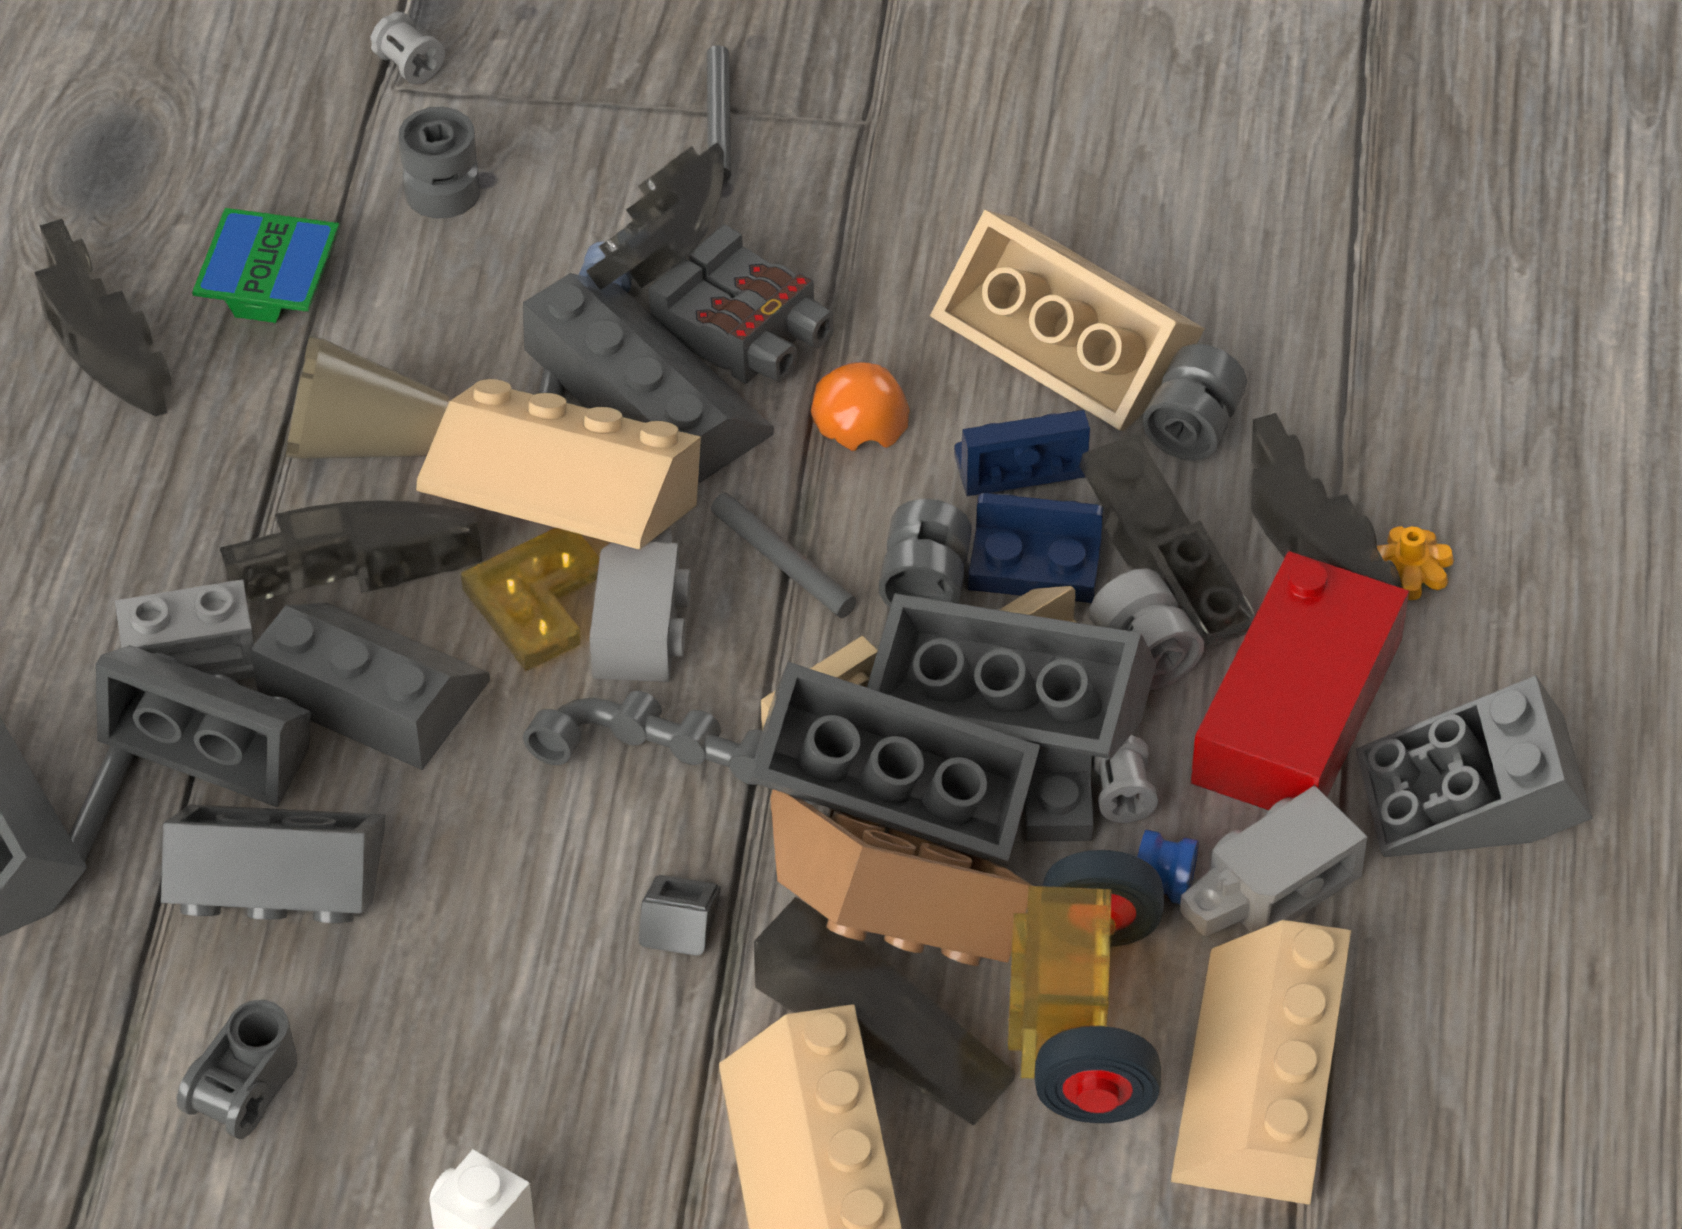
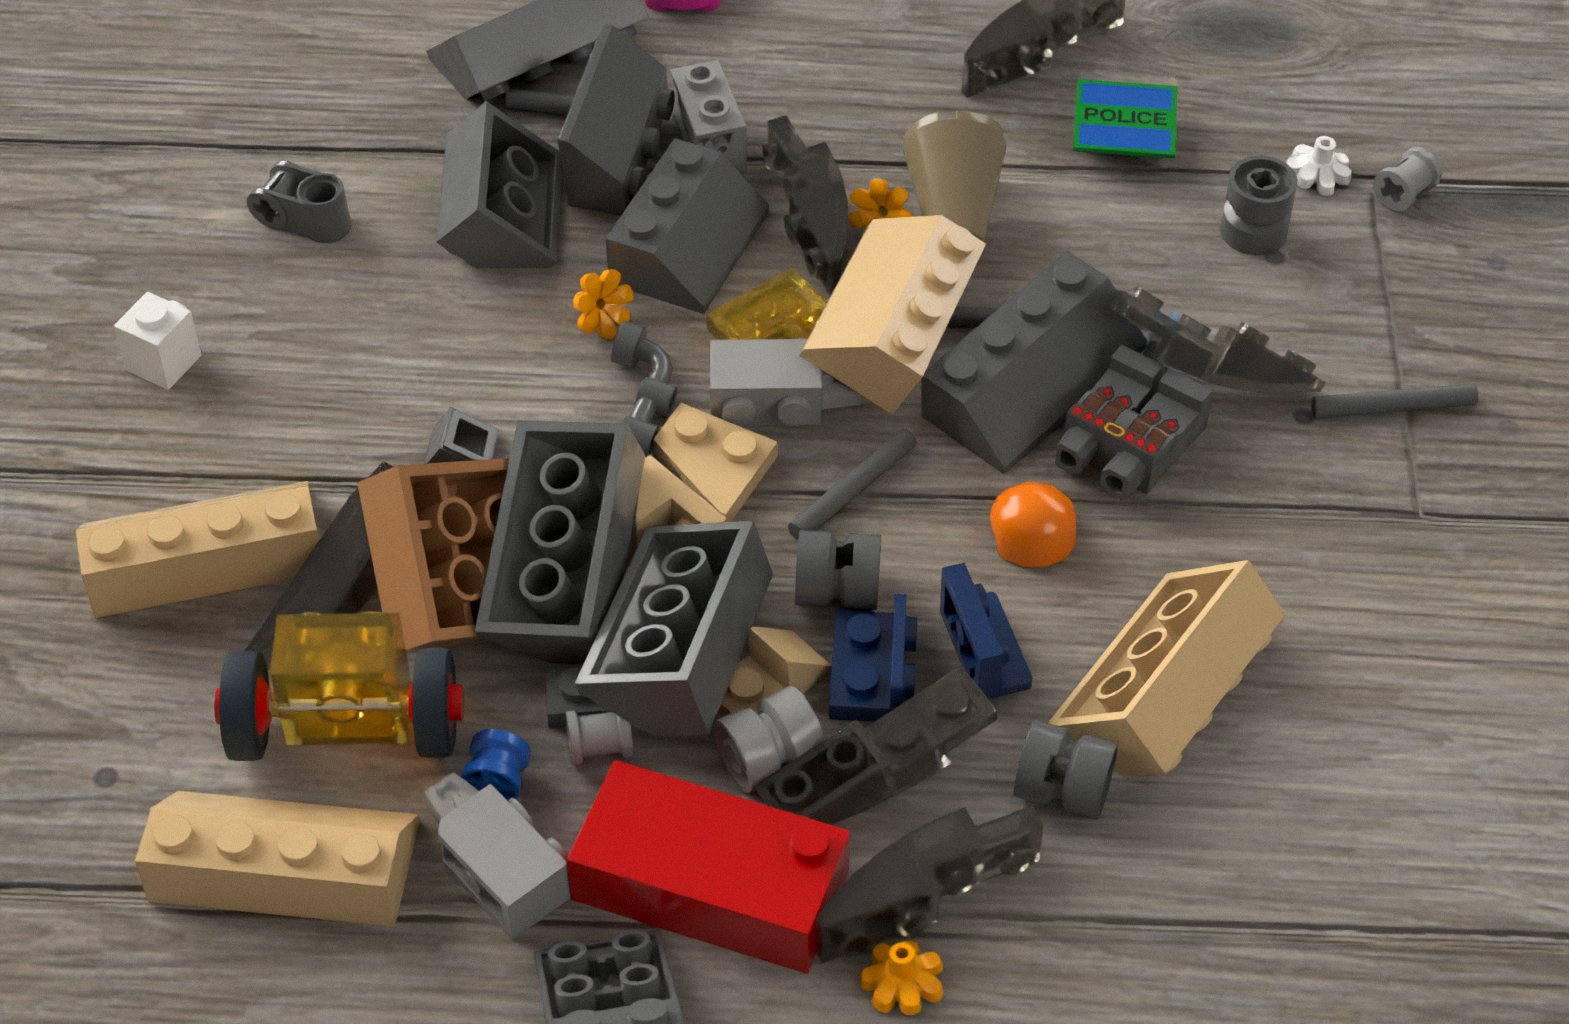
camera: 85 degrees right, 0 degrees up
(359, 119) = (1320, 166): none -> white plant
(377, 478) = (878, 203): none -> light orange plant
(479, 765) = (602, 303): none -> light orange plant
(728, 670) = (714, 457): none -> tan wing

